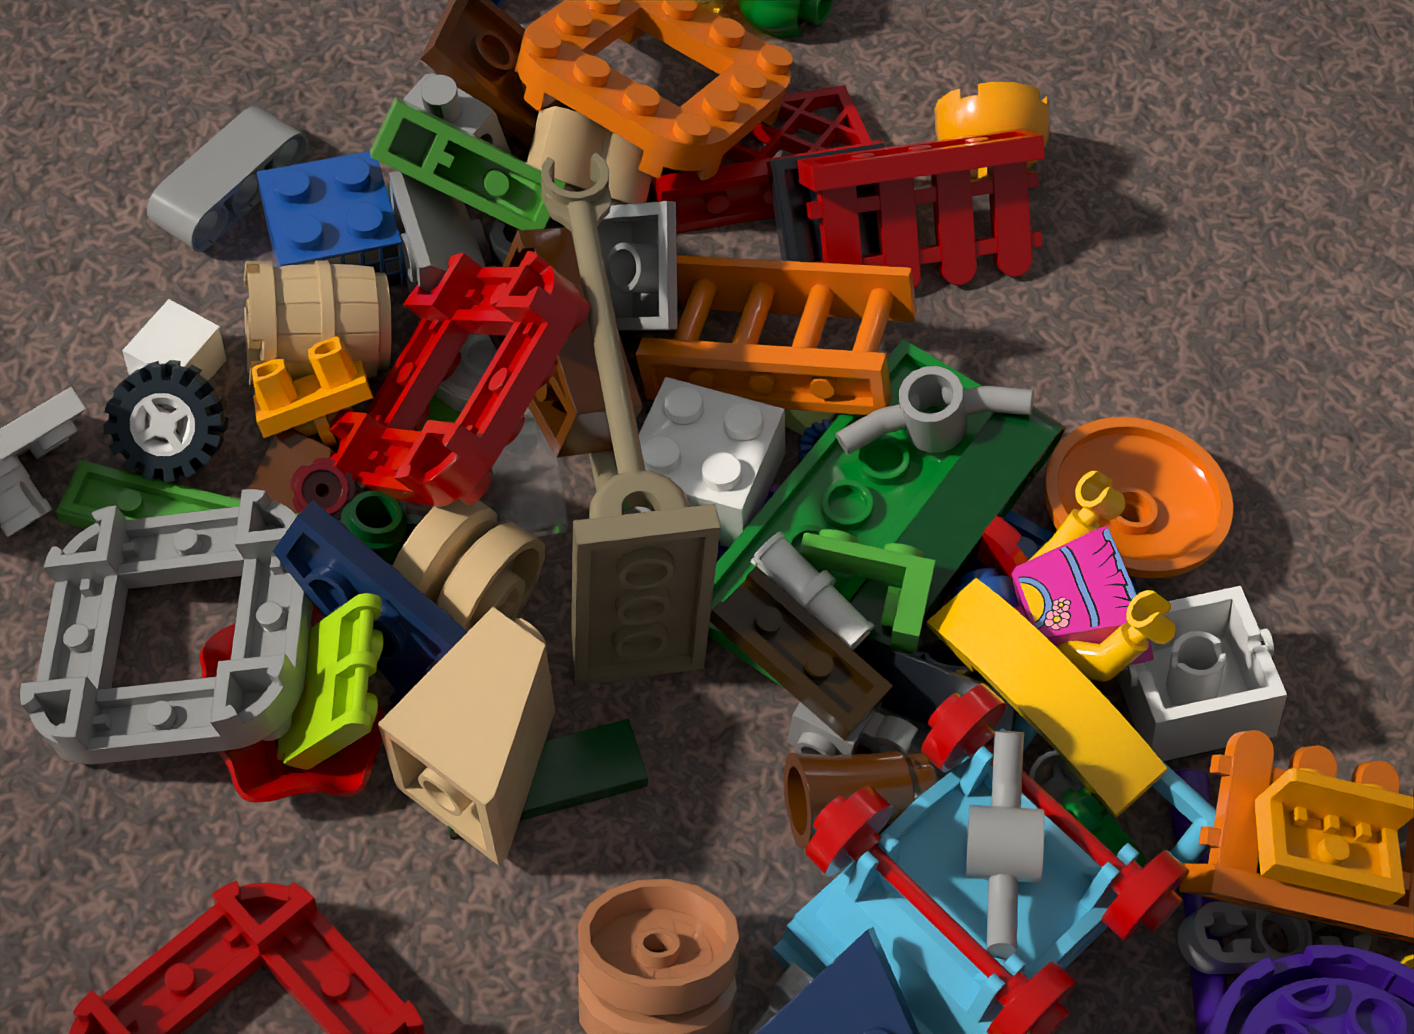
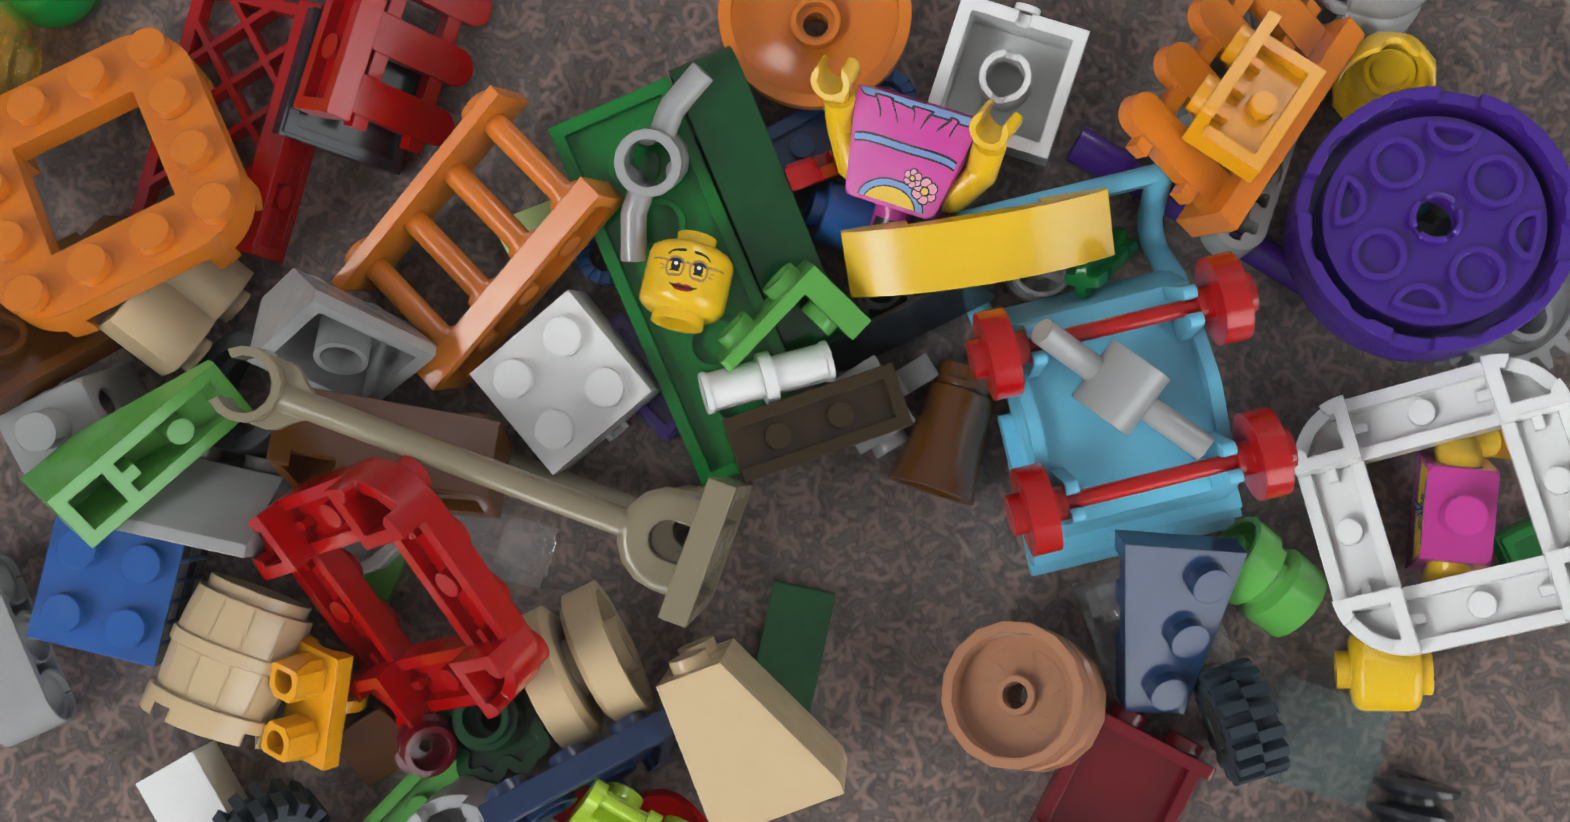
camera: 55 degrees left, 30 degrees up
(851, 486) = (686, 282): none -> yellow head

